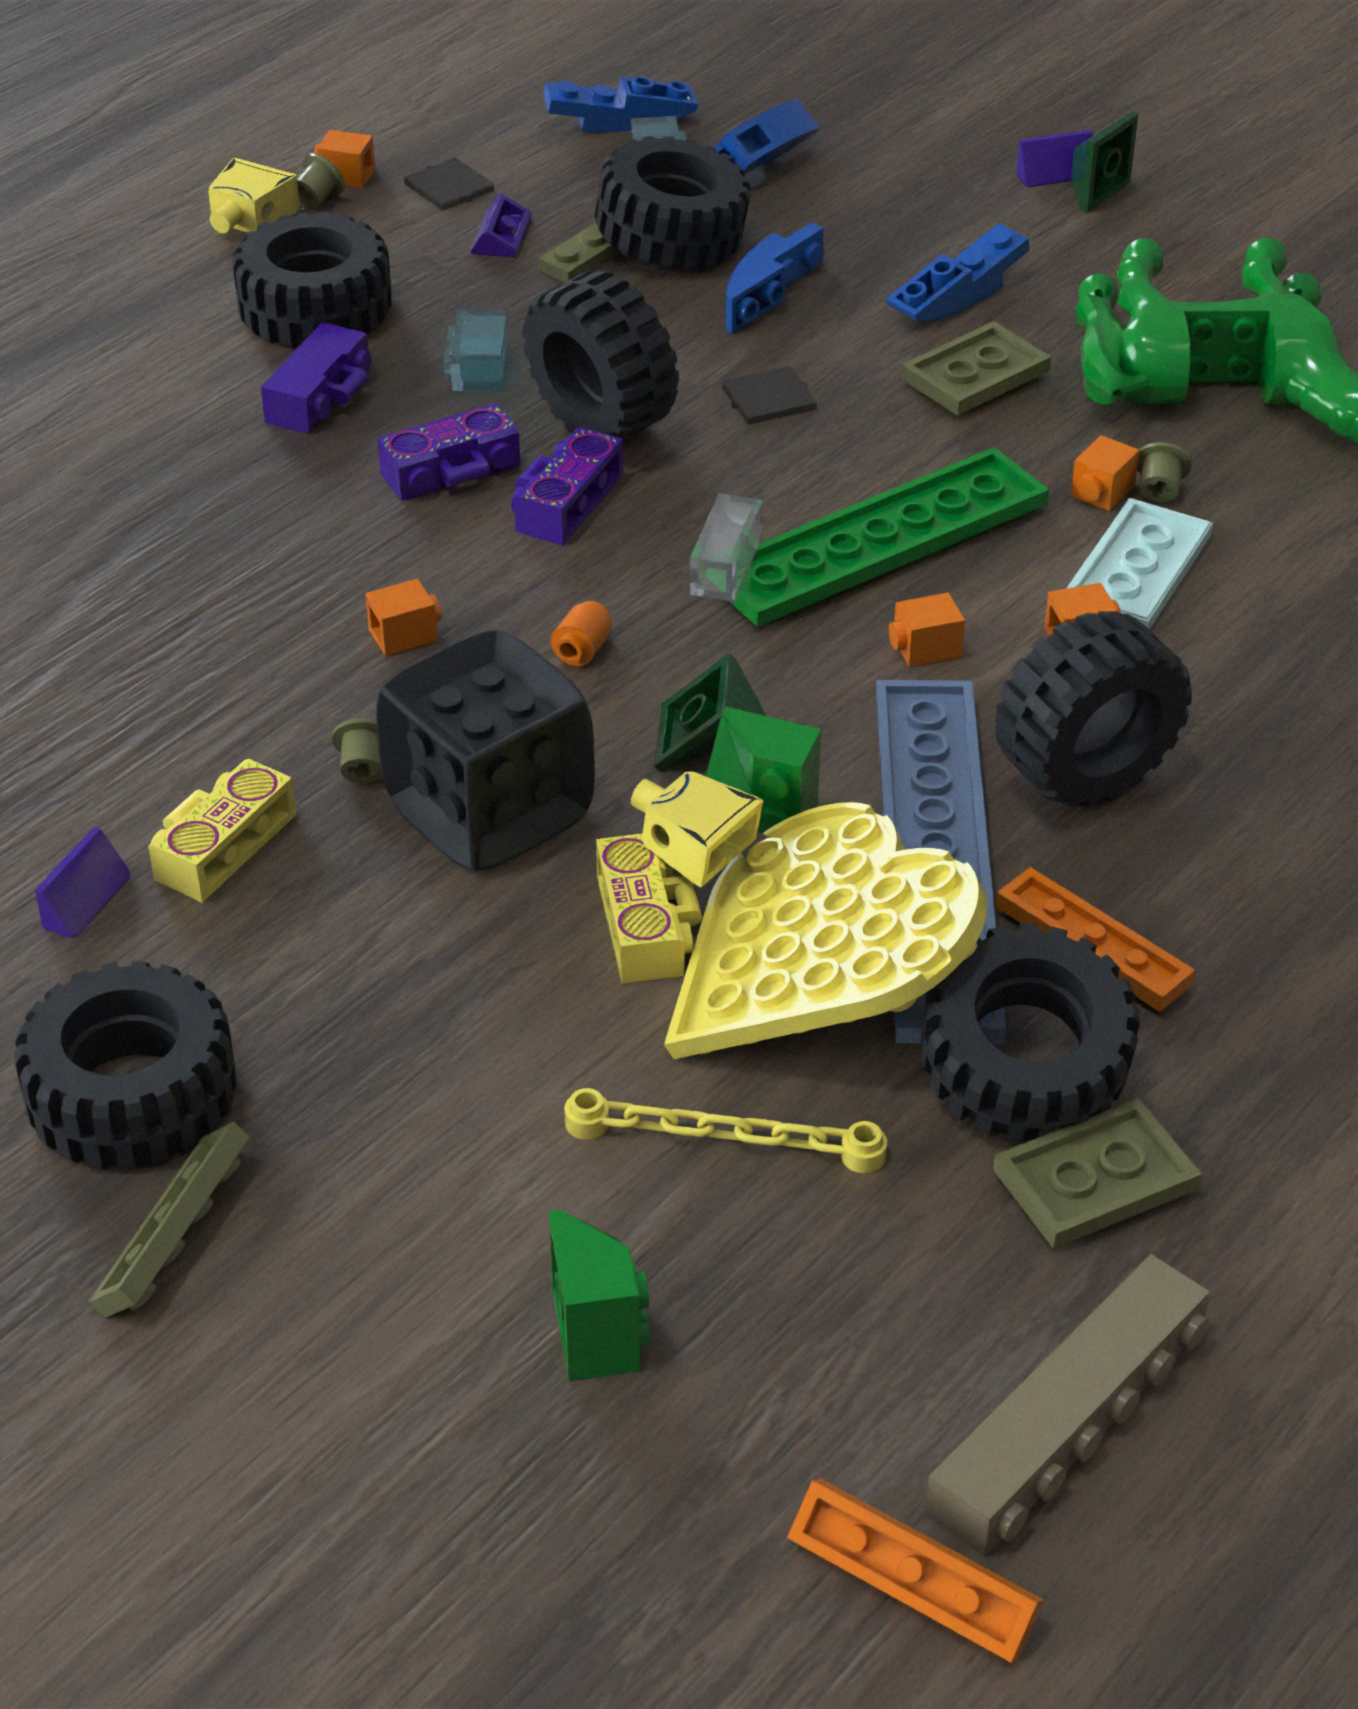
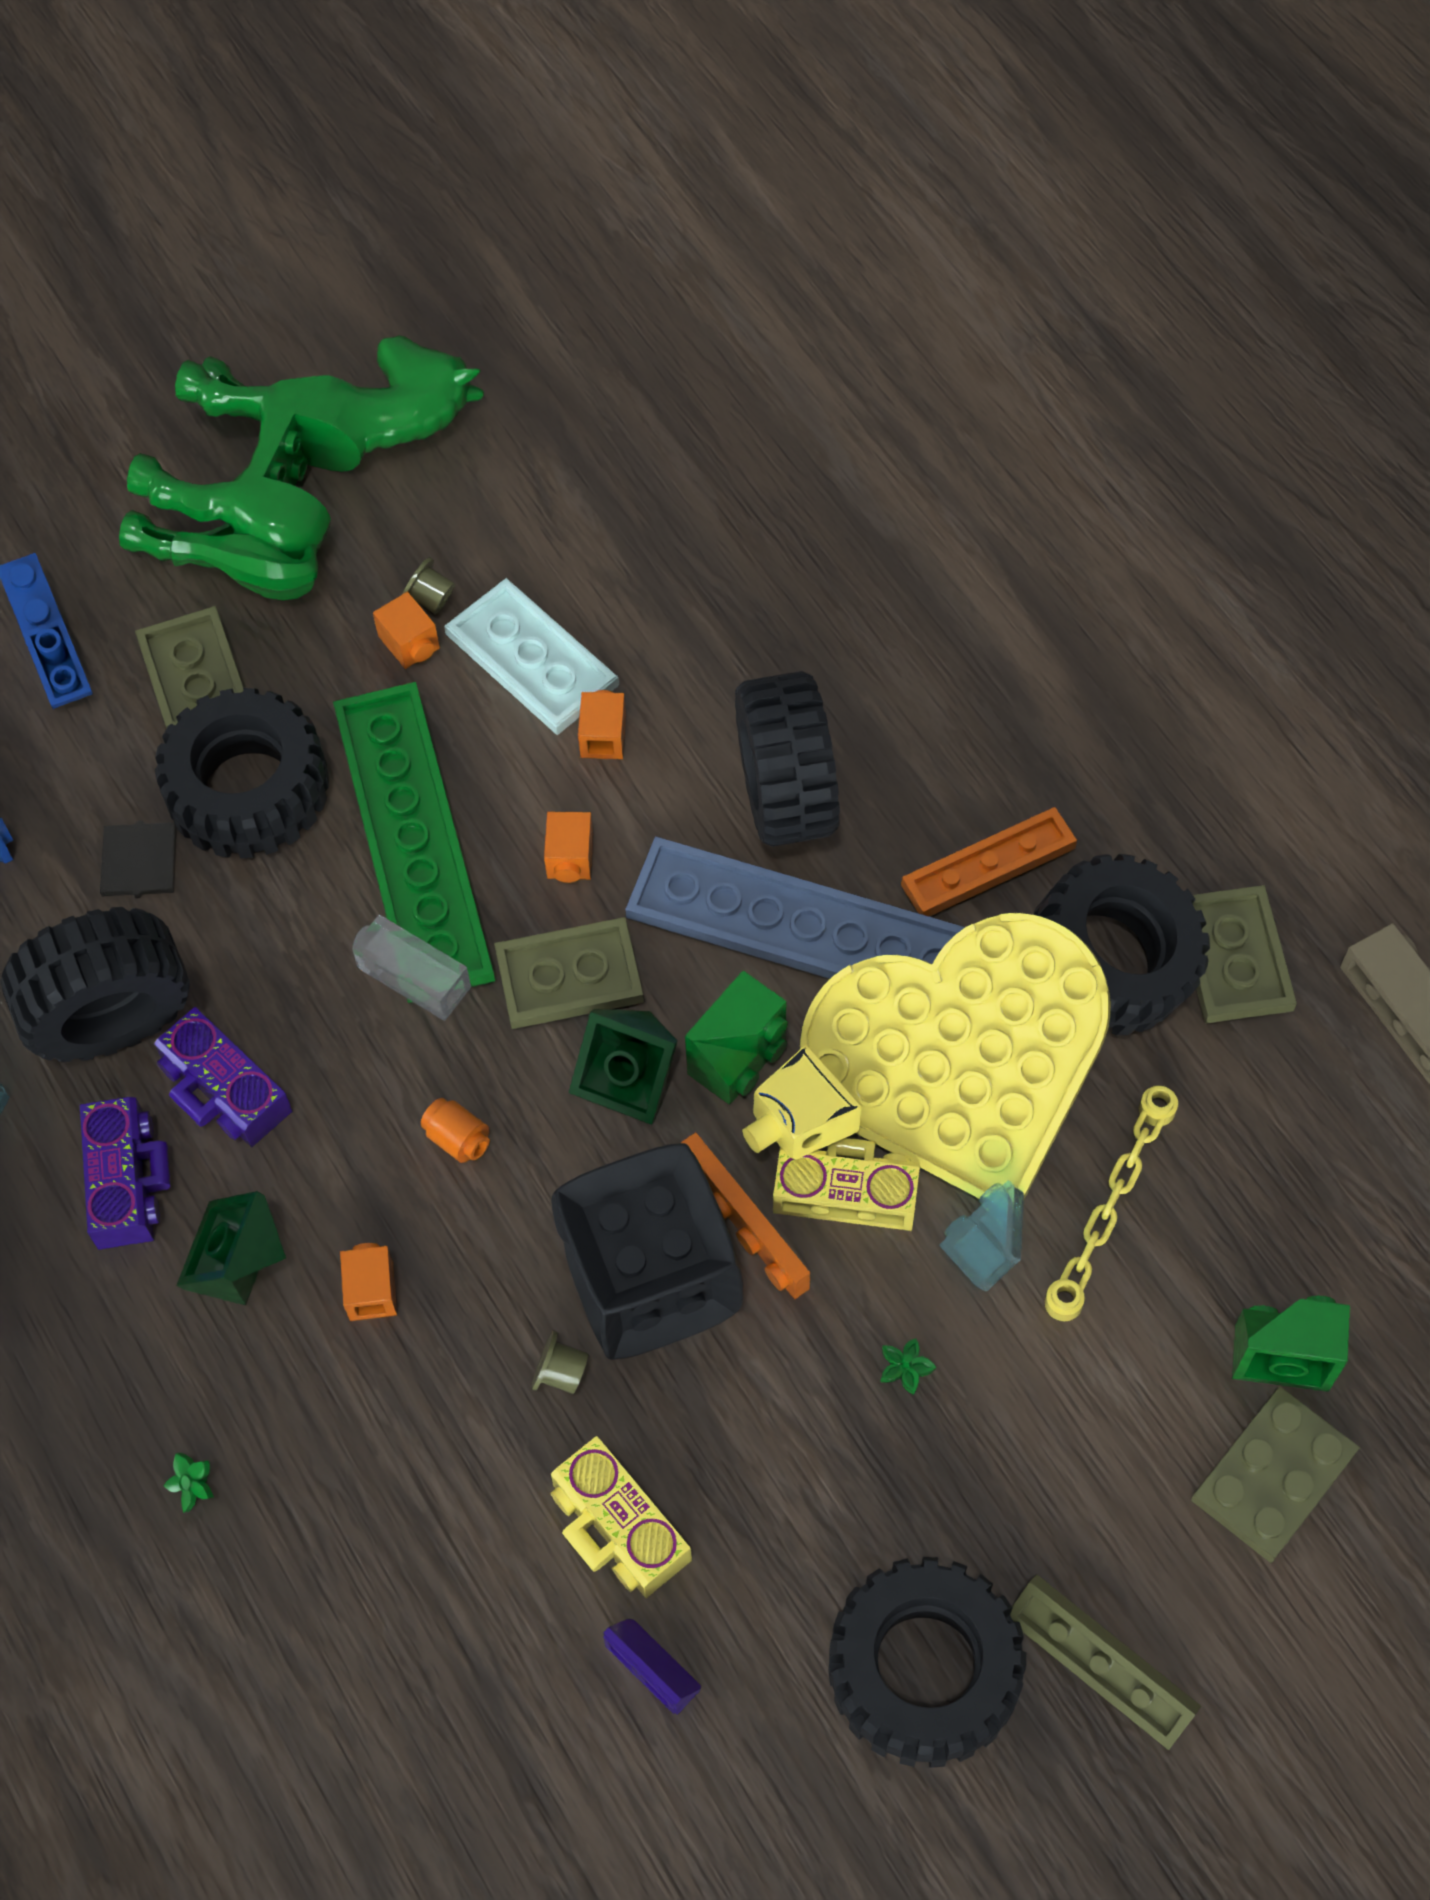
camera: 70 degrees left, 20 degrees up
(178, 566) = (189, 1479): none -> green plant
(398, 530) = (231, 1248): none -> dark green slope
(443, 1341) = (1275, 1474): none -> olive plate
(464, 1005) = (906, 1365): none -> green plant
(571, 843) = (754, 1230): none -> orange plate
(624, 1018) = (990, 1238): none -> clear light blue slope
(790, 665) = (568, 972): none -> olive plate
(879, 408) = (233, 727): none -> black tyre

